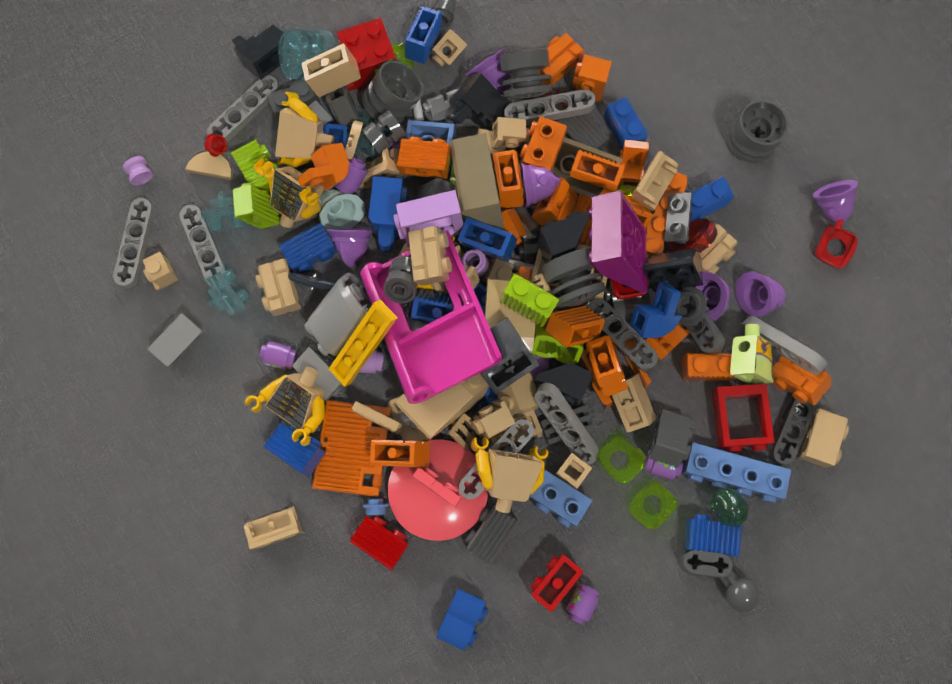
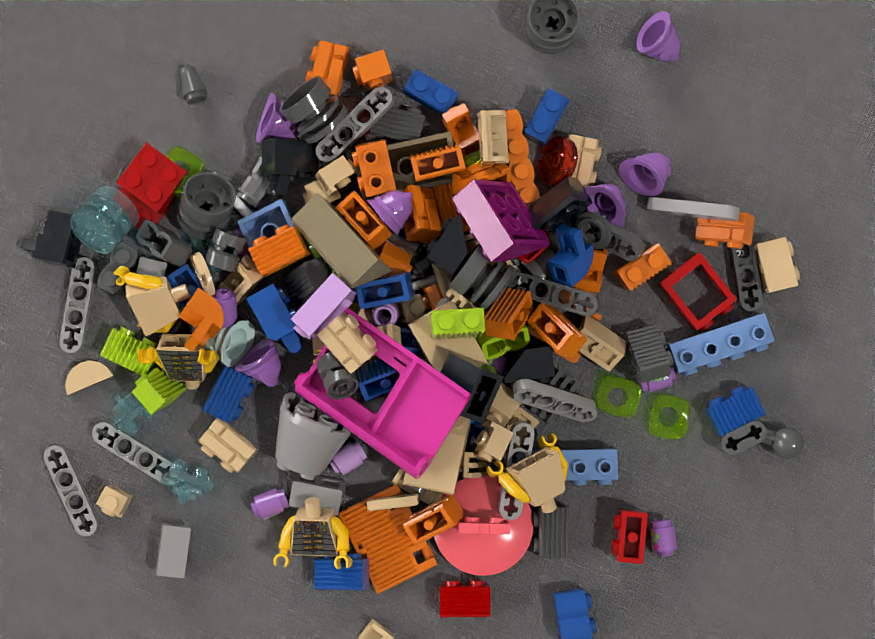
camera: 30 degrees left, 10 degrees up
(137, 170) = (26, 425): lavender wheel -> none
(220, 144) = (80, 356): red plate -> none
(311, 281) = (255, 422): wheel -> none
(331, 70) = (141, 227): tan brick -> none
(363, 342) = (341, 452): yellow plate -> none
(375, 507) = (441, 574): medium blue plate -> none
(422, 35) = (192, 129): blue brick -> none
(453, 43) = (230, 119): tan brick -> none
(573, 471) = (585, 436): tan brick -> none
(678, 218) = (534, 156): dark grey hinge -> none
(729, 507) = (733, 379): clear green head -> none
(752, 357) = (673, 238): yellowish green torso -> none
(848, 239) = (695, 69): red piece -> none

